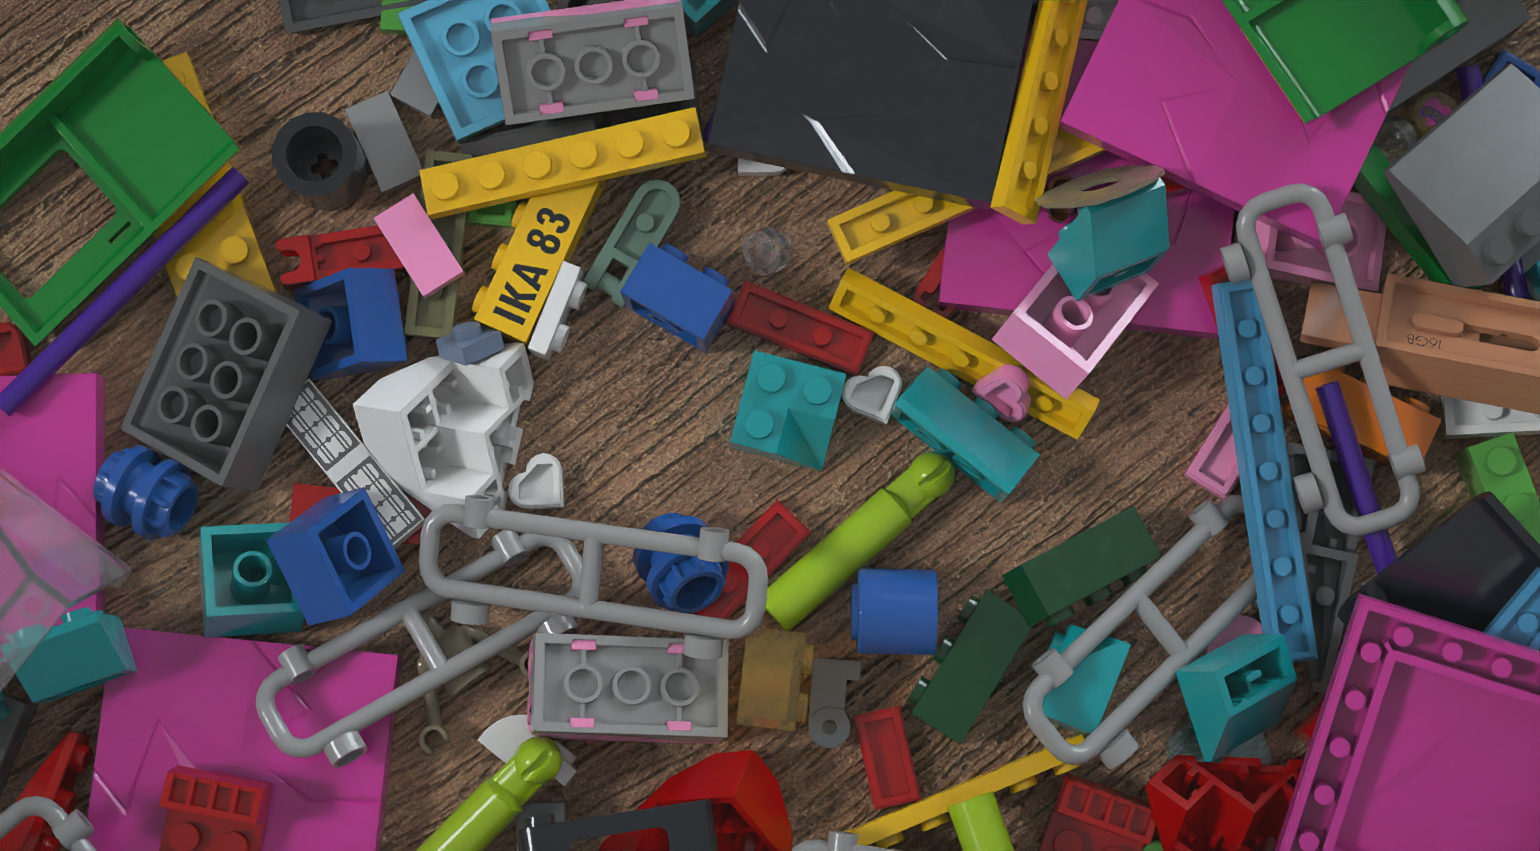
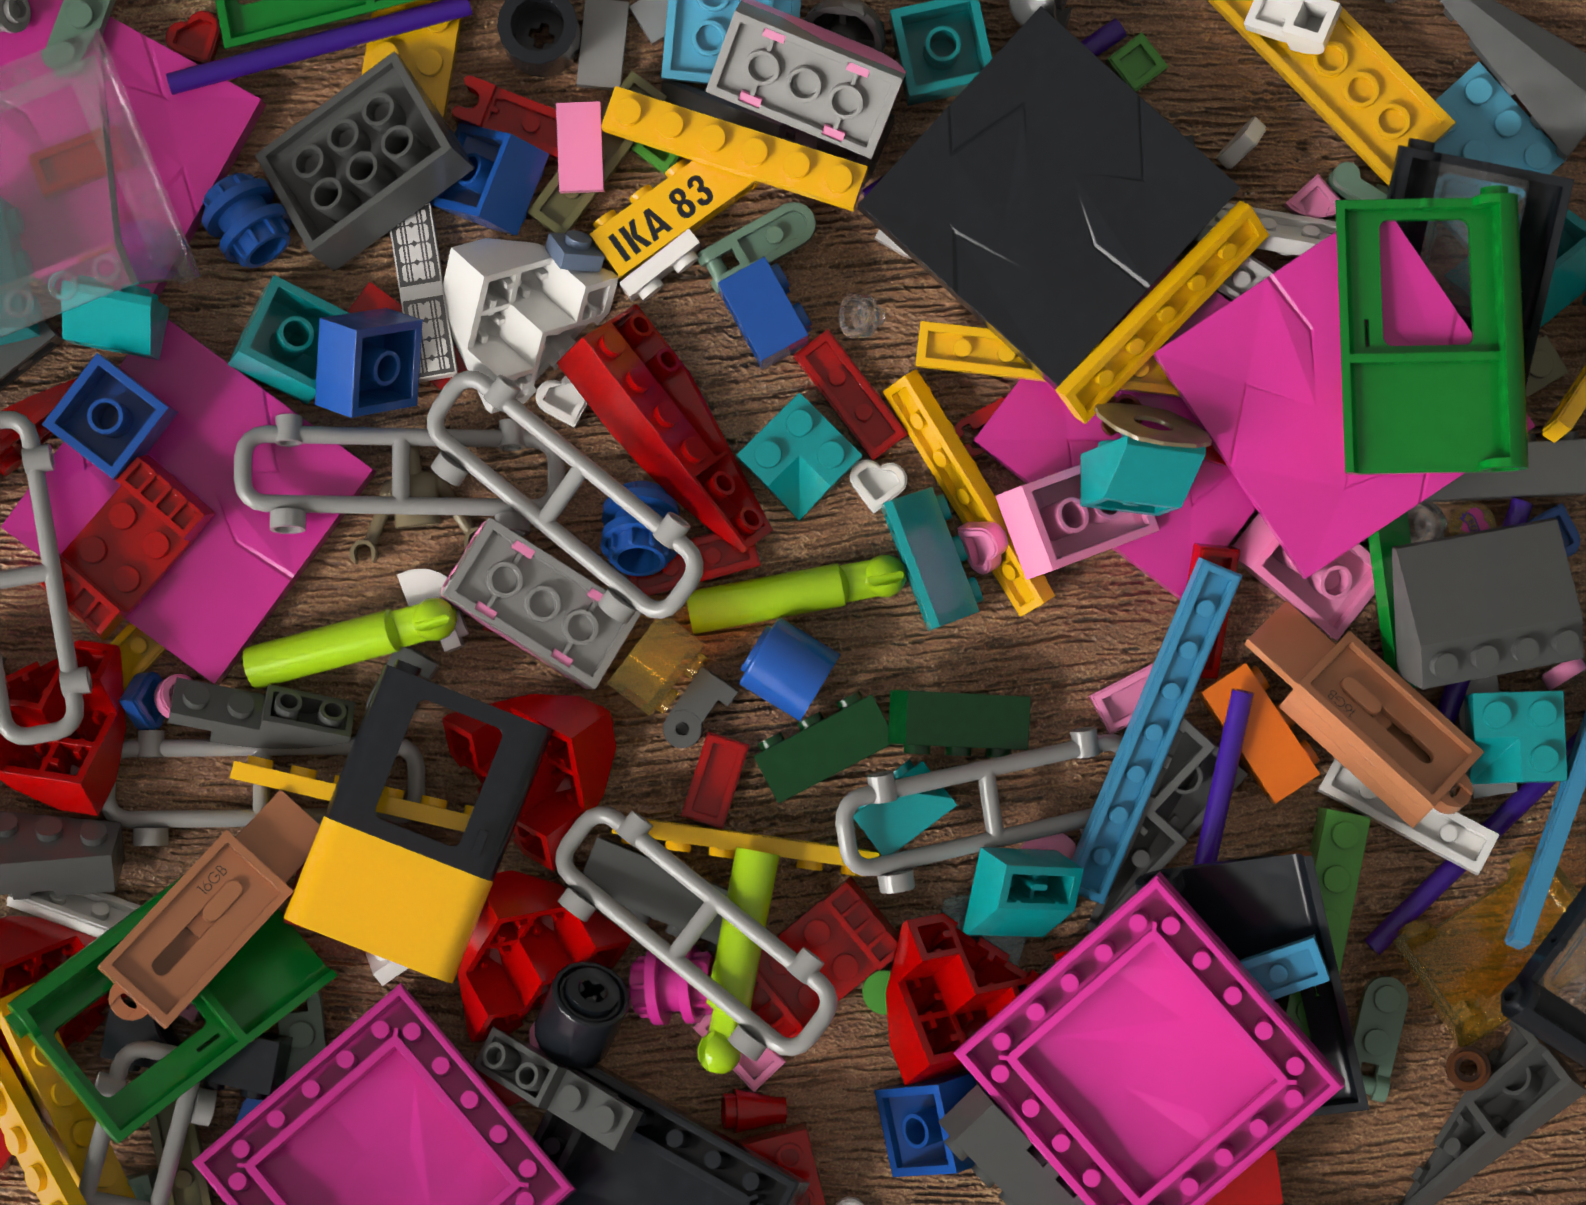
camera: 30 degrees right, 5 degrees up
(119, 750) = (109, 417): none -> blue brick
(645, 453) = (664, 423): none -> red wedge
(1245, 262) = (1234, 555): light grey bar -> none

